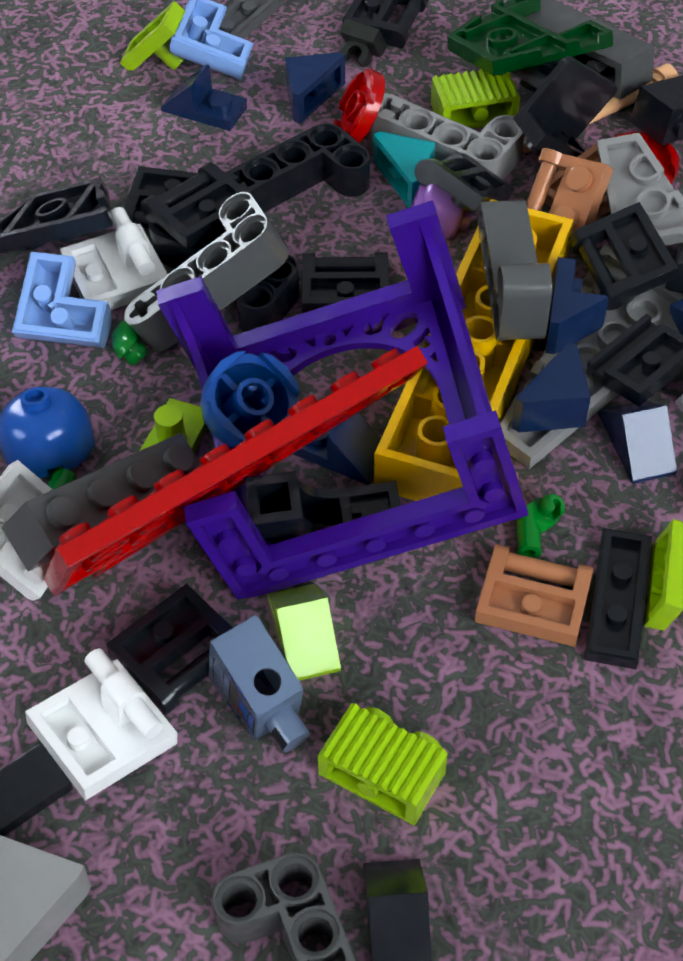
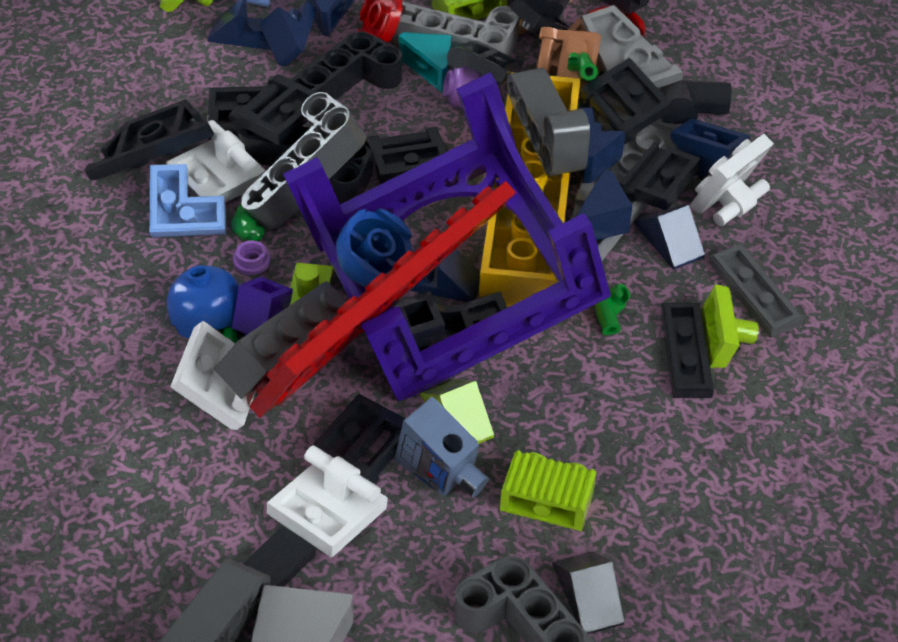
camera: 15 degrees left, 5 degrees down
(101, 442) = (258, 302): none -> dark purple brick
(116, 374) = (251, 258): none -> medium lavender plate
(249, 112) = (288, 31): none -> dark blue slope
(533, 606) = (625, 359): nougat plate -> none
(581, 204) = (583, 64): none -> green arm

